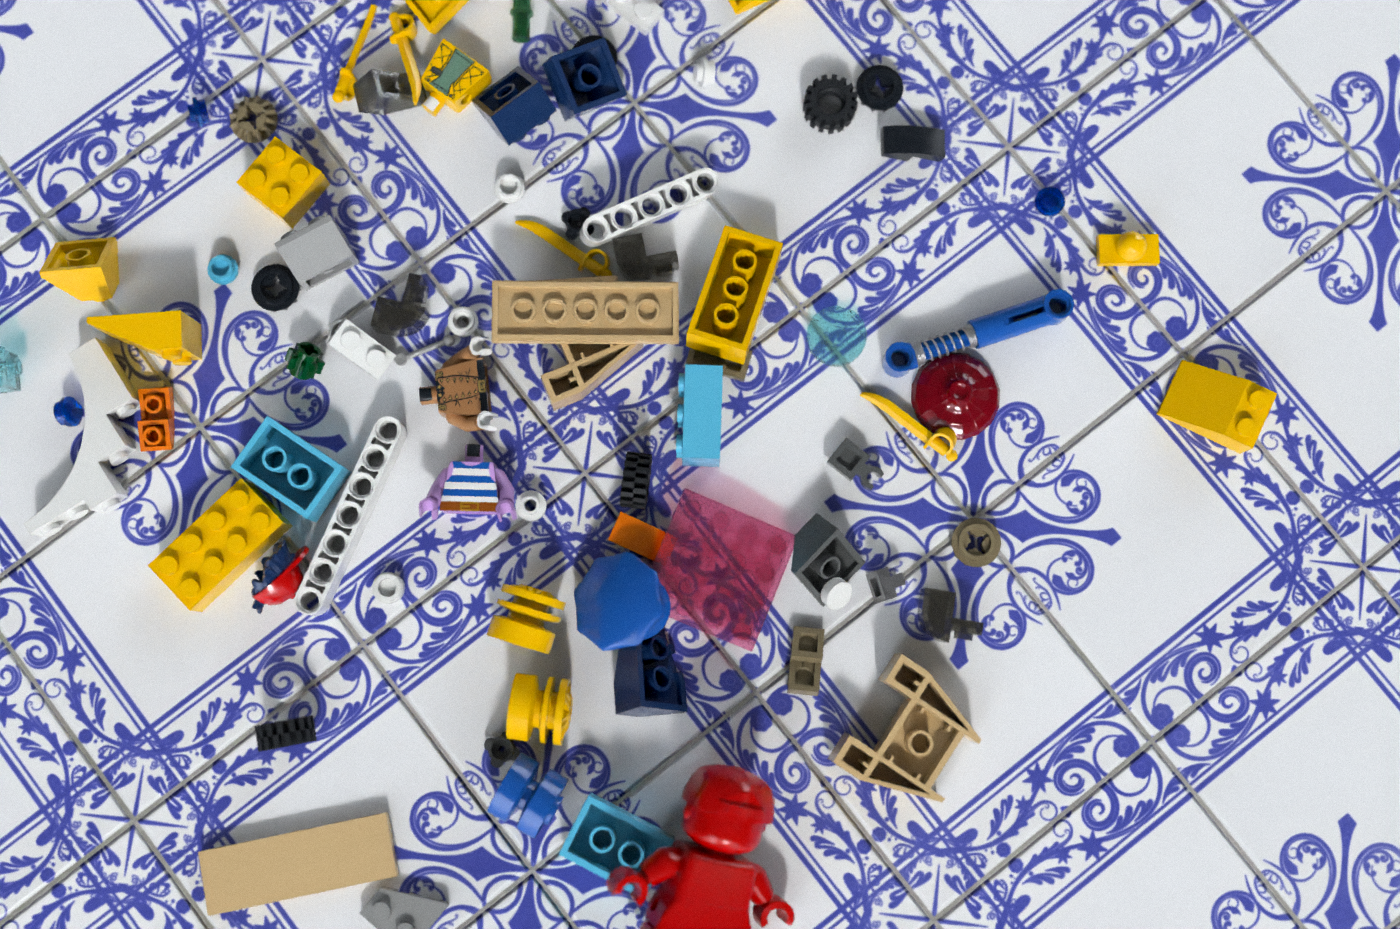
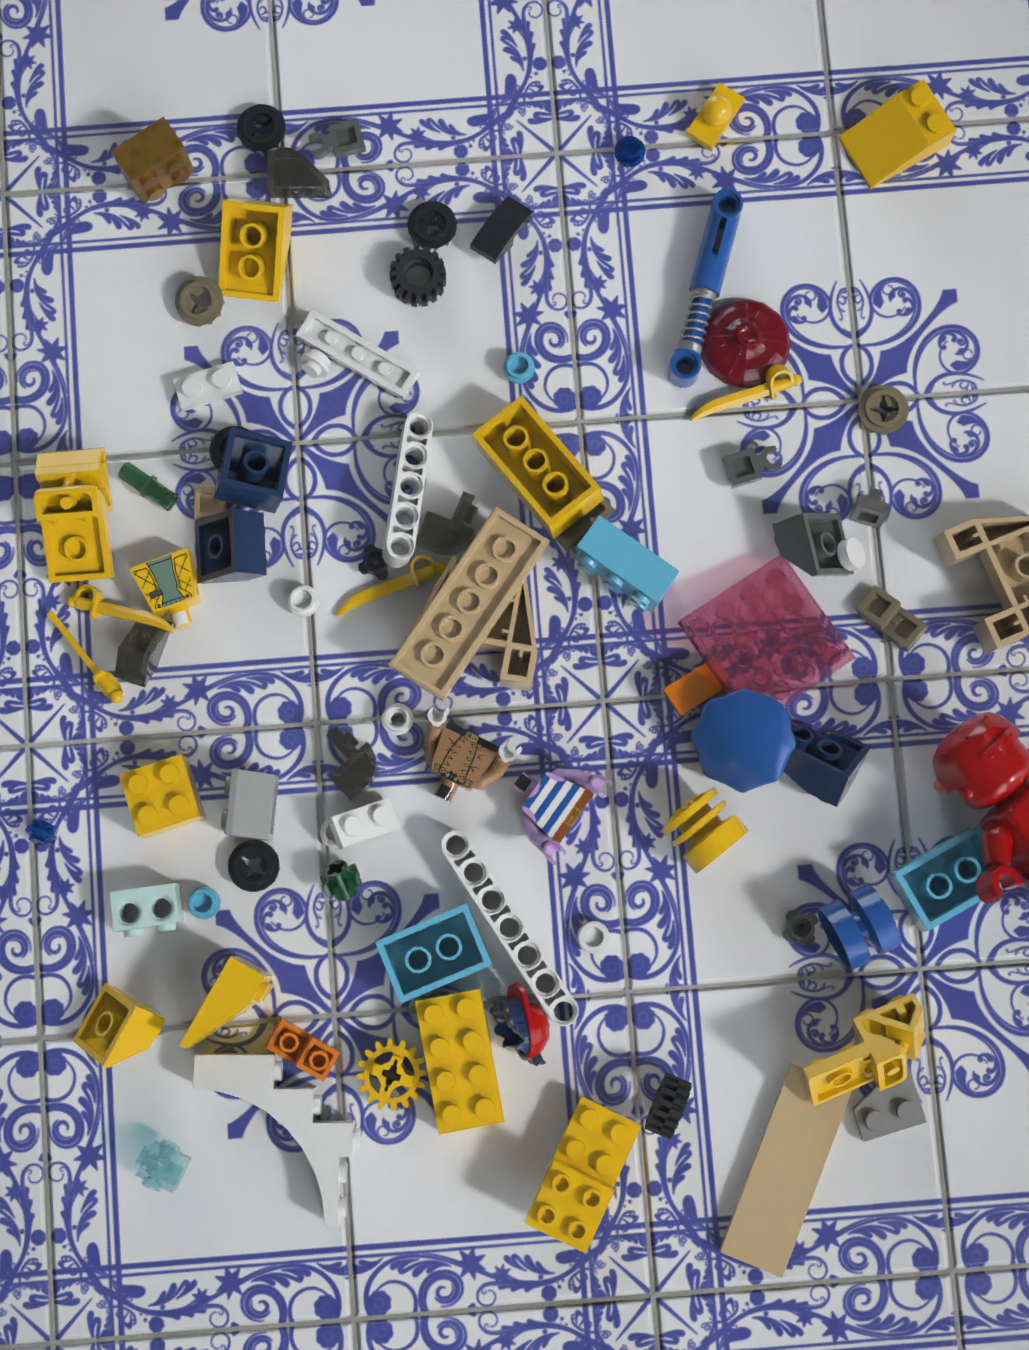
camera: 55 degrees left, 0 degrees up
(68, 411) = (243, 1124): clear blue plate -> none
(173, 487) = (377, 1069): none -> yellow gear
(187, 700) = (582, 1174): none -> yellow piece
(192, 226) = (146, 902): none -> light aqua brick
(265, 124) = (88, 800): dark tan gear -> none
(401, 359) = (404, 743): light grey hinge -> none
(447, 868) = (882, 1044): none -> yellow piece
(533, 65) = (205, 504): none -> tan tile
(539, 709) = (790, 869): yellow wheel -> none
(540, 508) = (607, 755): white plate -> none
(636, 480) = (644, 658): black tyre -> none
(734, 100) = (358, 354): none -> white plate
(810, 230) = (519, 367): none -> medium azure plate
(836, 336) = (626, 407): clear light blue tile -> none
(937, 619) = (925, 483): clear smoke brick -> none

